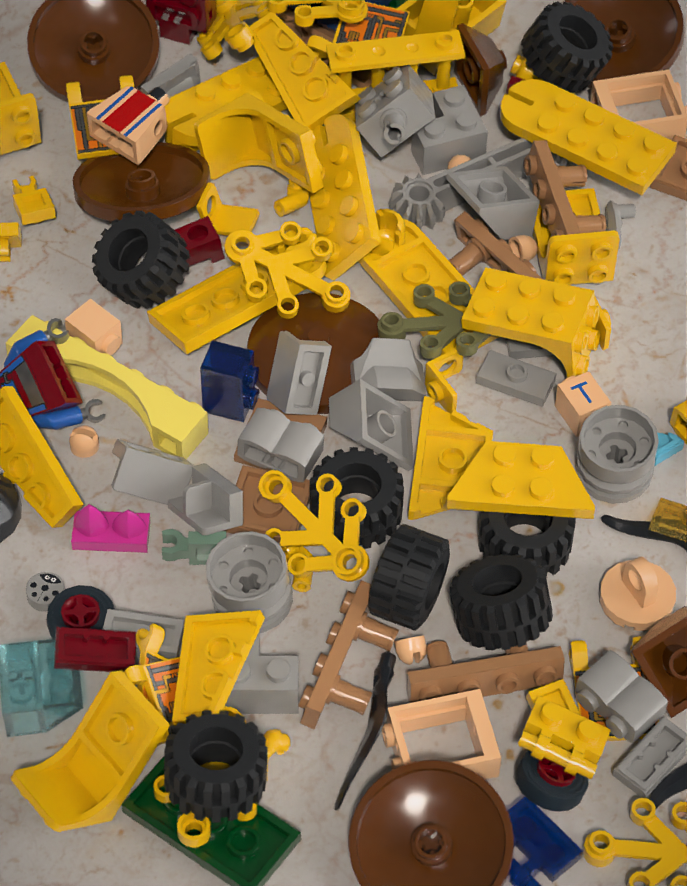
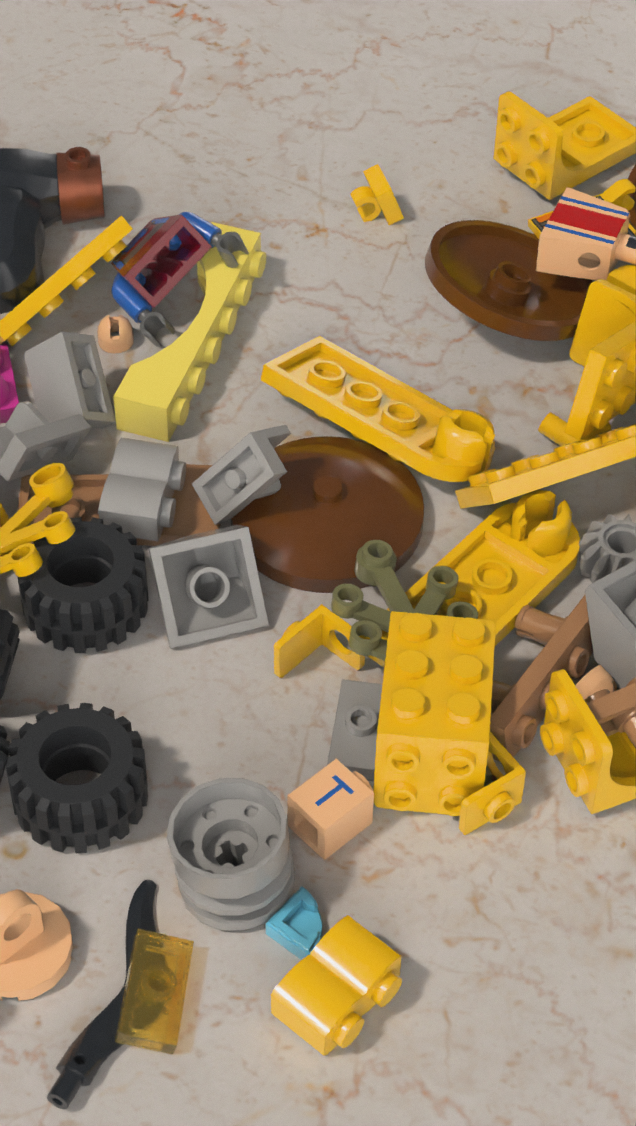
camera: 75 degrees right, 5 degrees down
(31, 203) = (444, 207): yellow plate -> none
(95, 327) = (271, 298): light nougat brick -> none
(157, 272) = (377, 298): black tyre -> none
(201, 241) = (440, 351): dark red leg -> none
(226, 217) = (504, 378): yellow bracket -> none
(229, 381) = (218, 410): clear blue brick -> none
(283, 266) = (417, 374): yellow plant -> none
(391, 369) = (300, 572): light grey slope -> none
(443, 454) = (184, 677): yellow wing -> none
(522, 481) = (124, 731): yellow wing -> none

